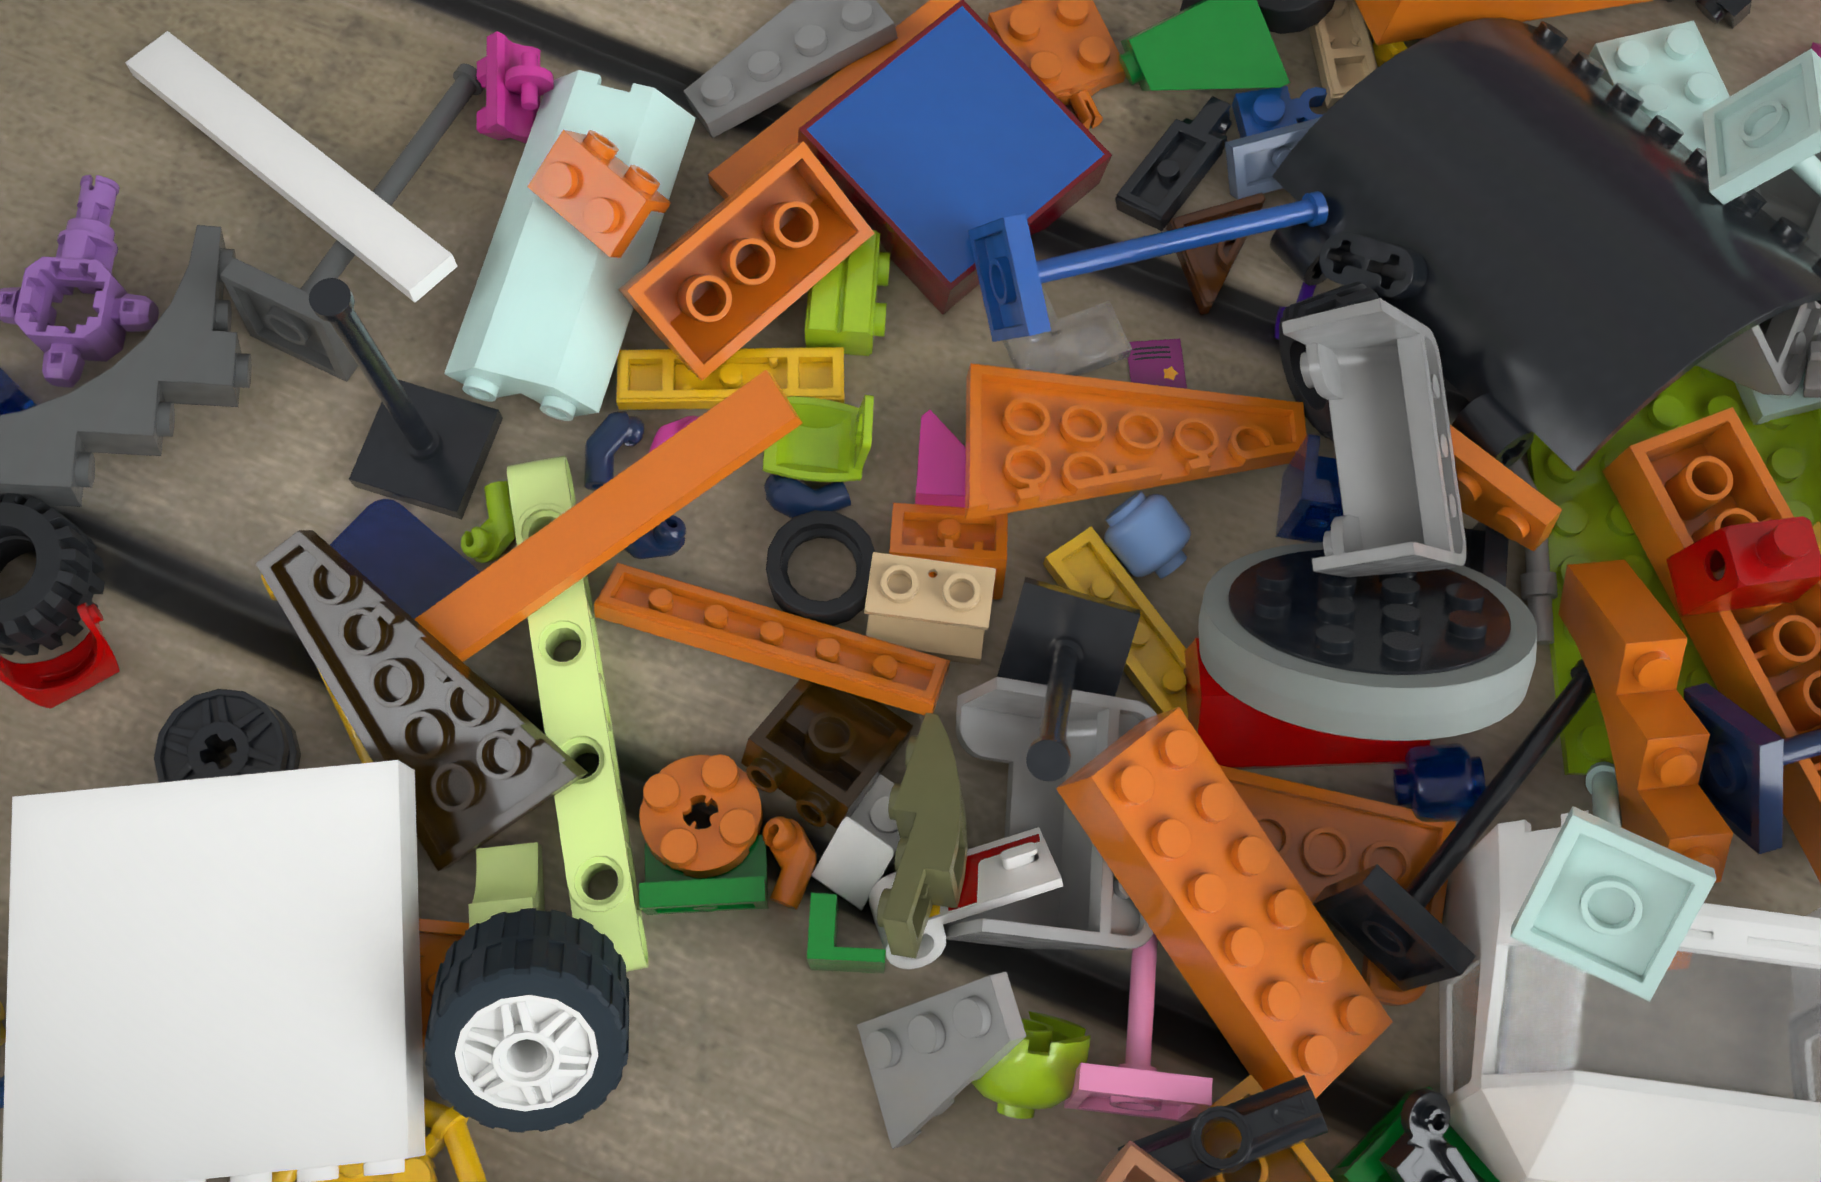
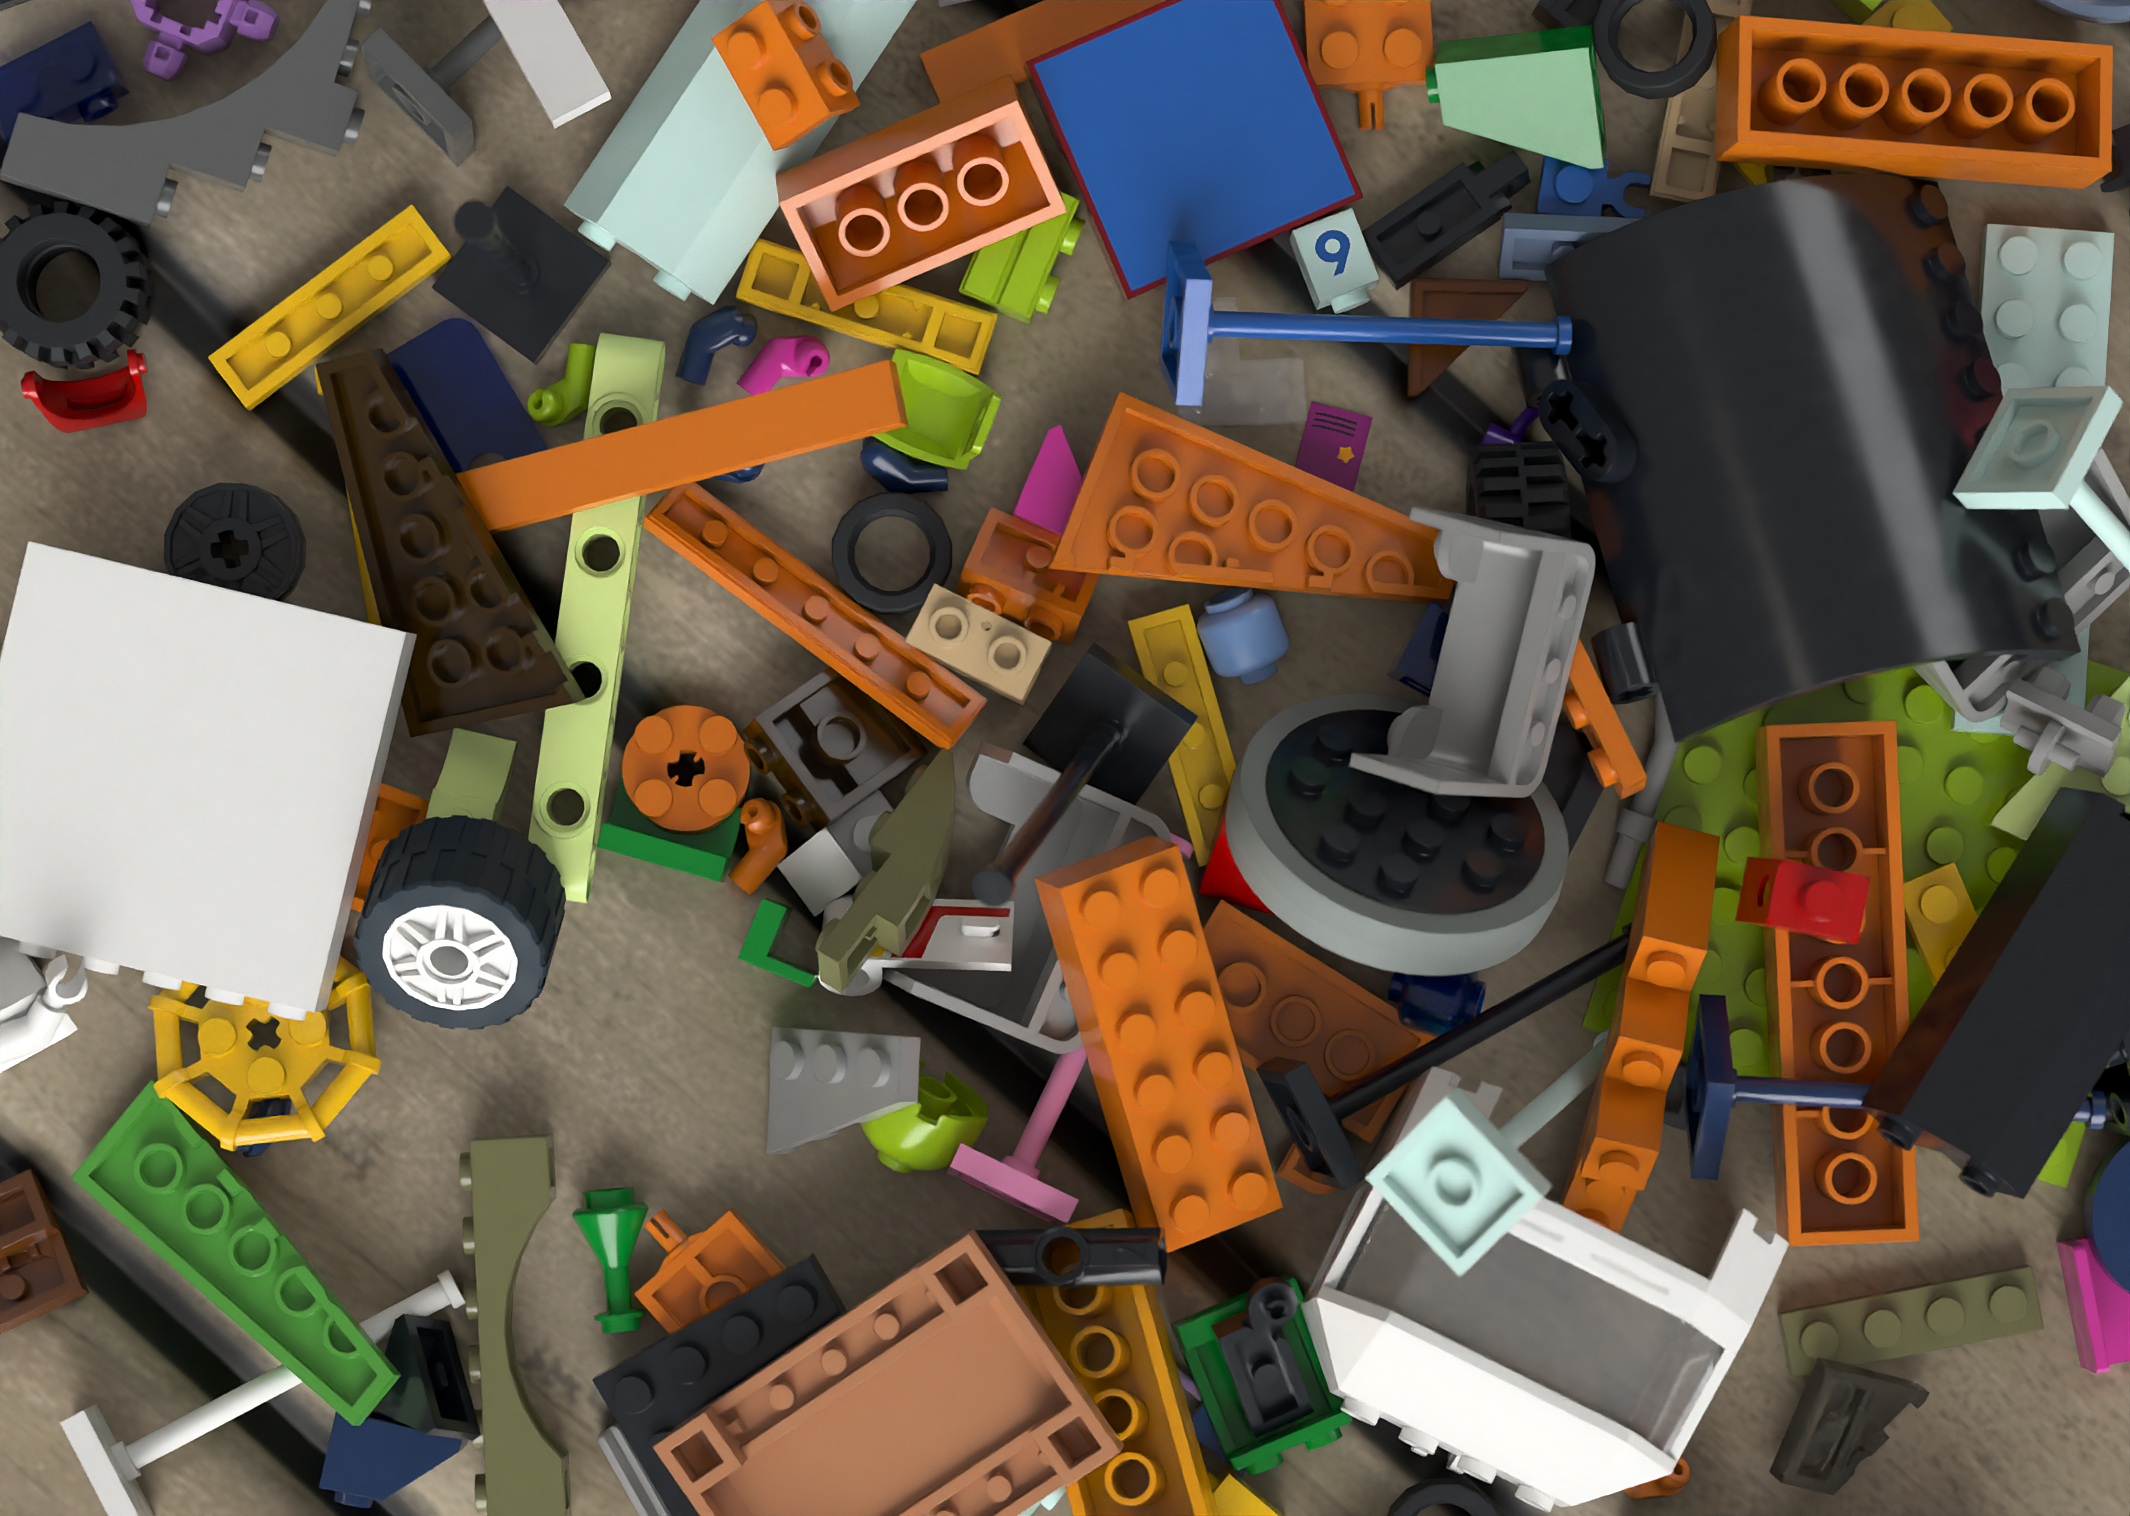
camera: 20 degrees right, 15 degrees up
(261, 521) = (330, 307): none -> yellow plate
(1101, 214) = (1335, 261): none -> light aqua brick

